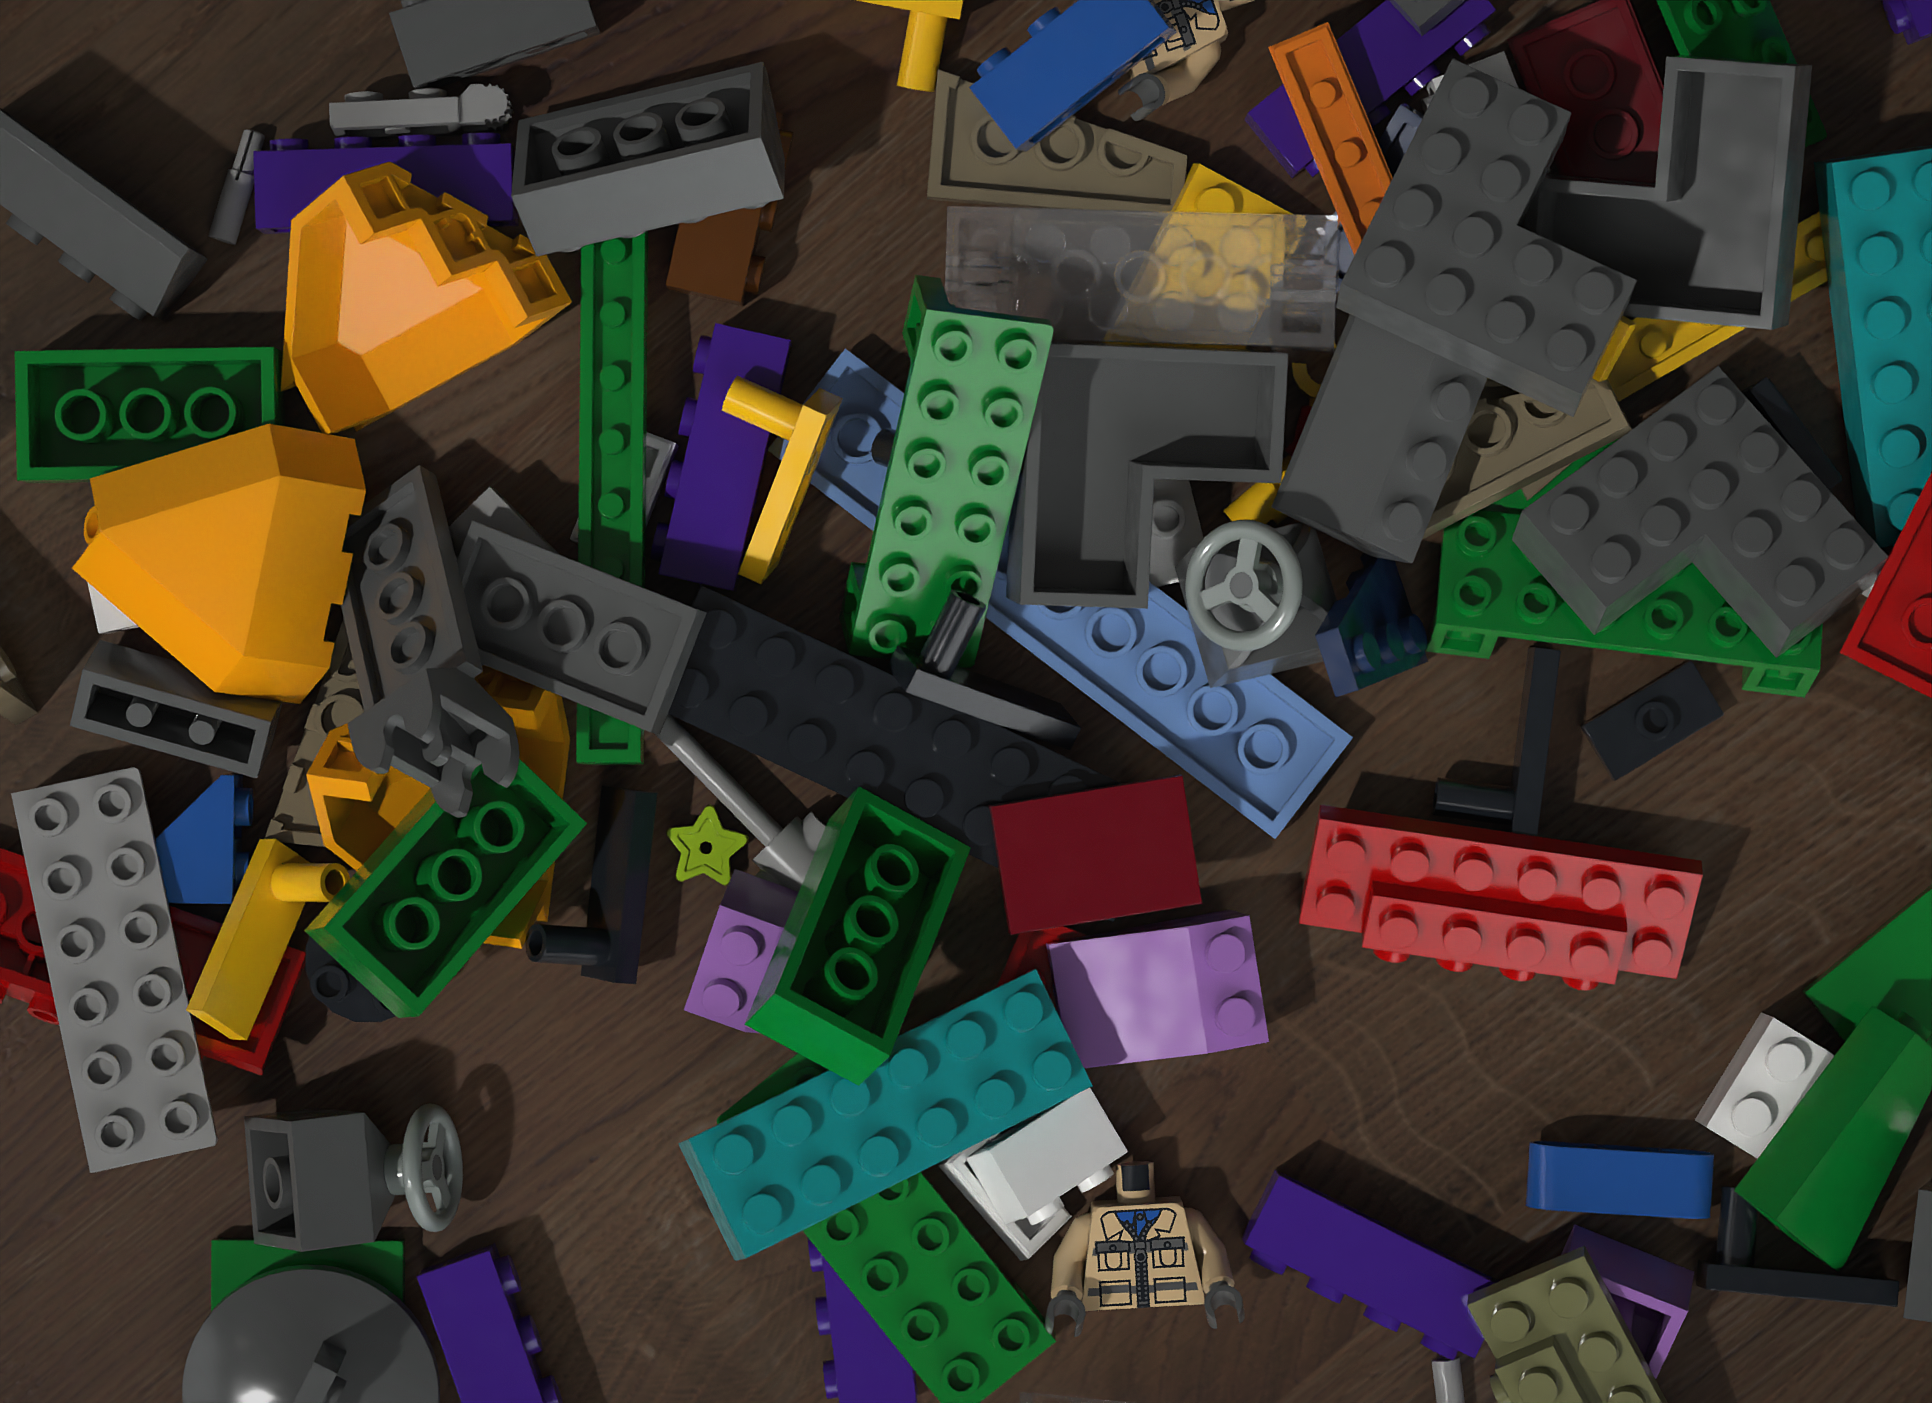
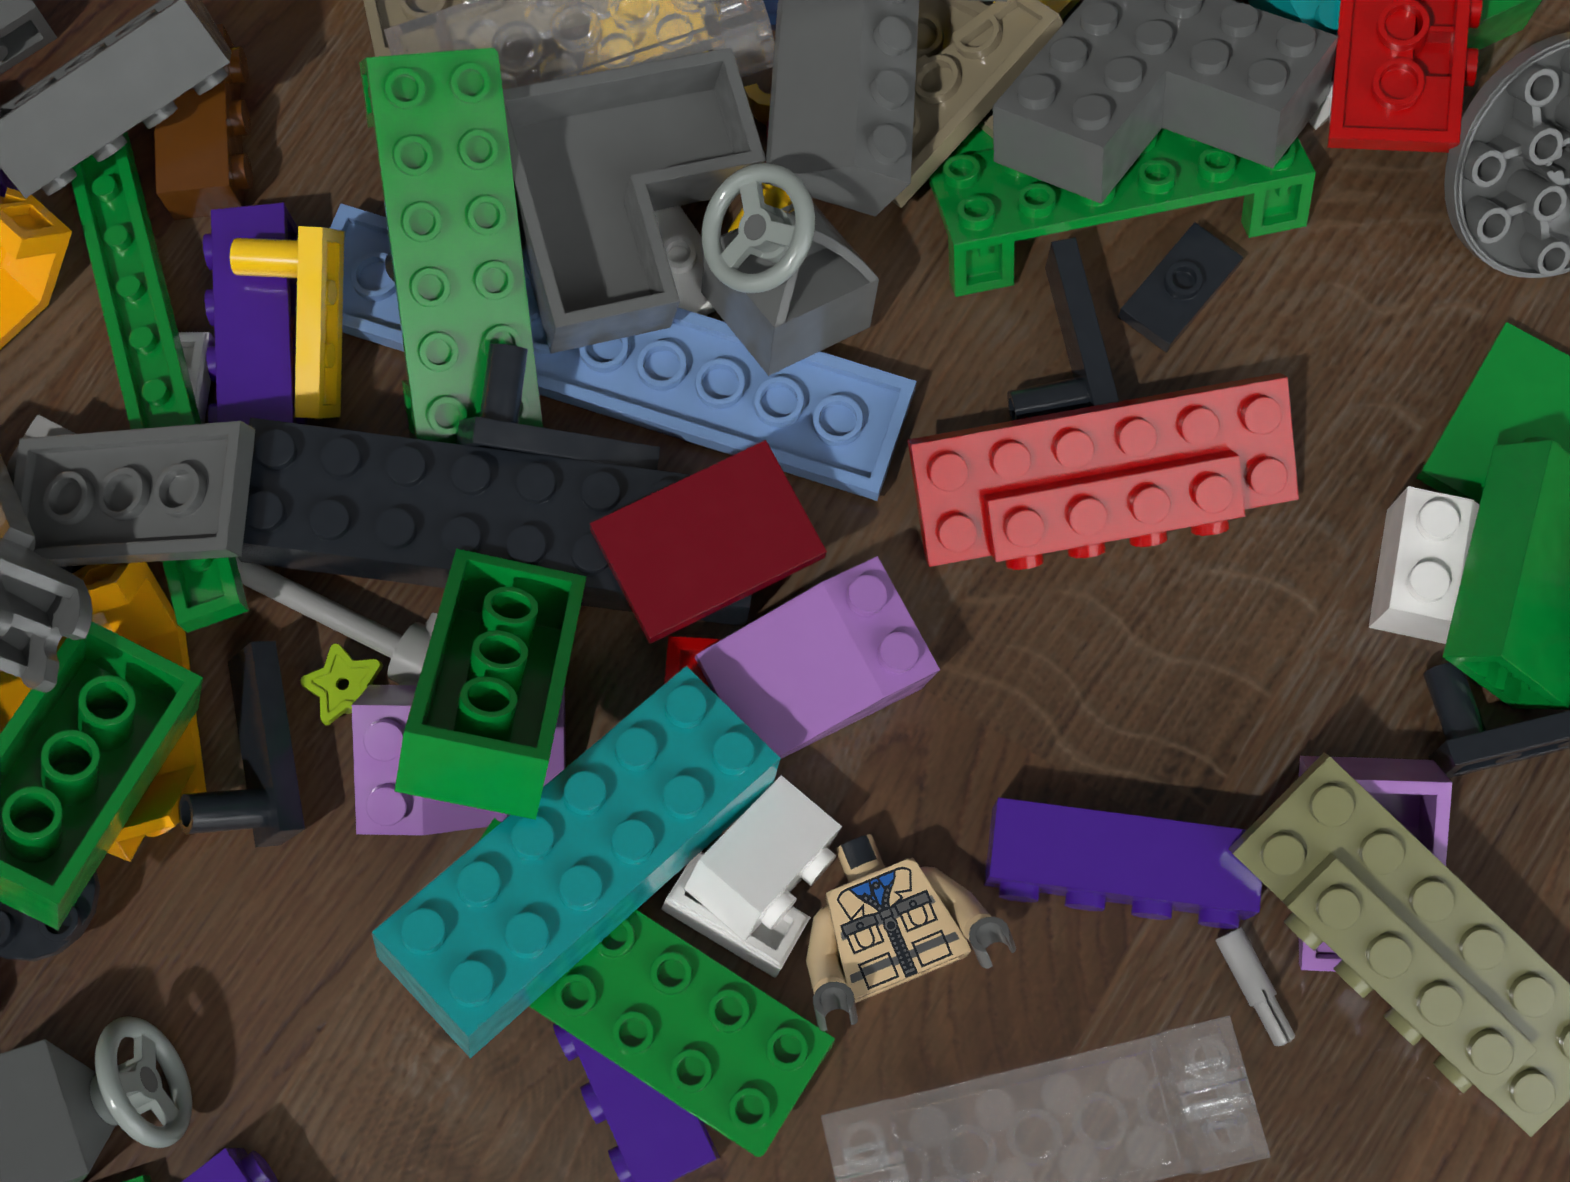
camera: 15 degrees left, 15 degrees down
(1371, 630) = (899, 273): dark blue wing -> none
(1620, 1179) = (1325, 698): blue beam -> none

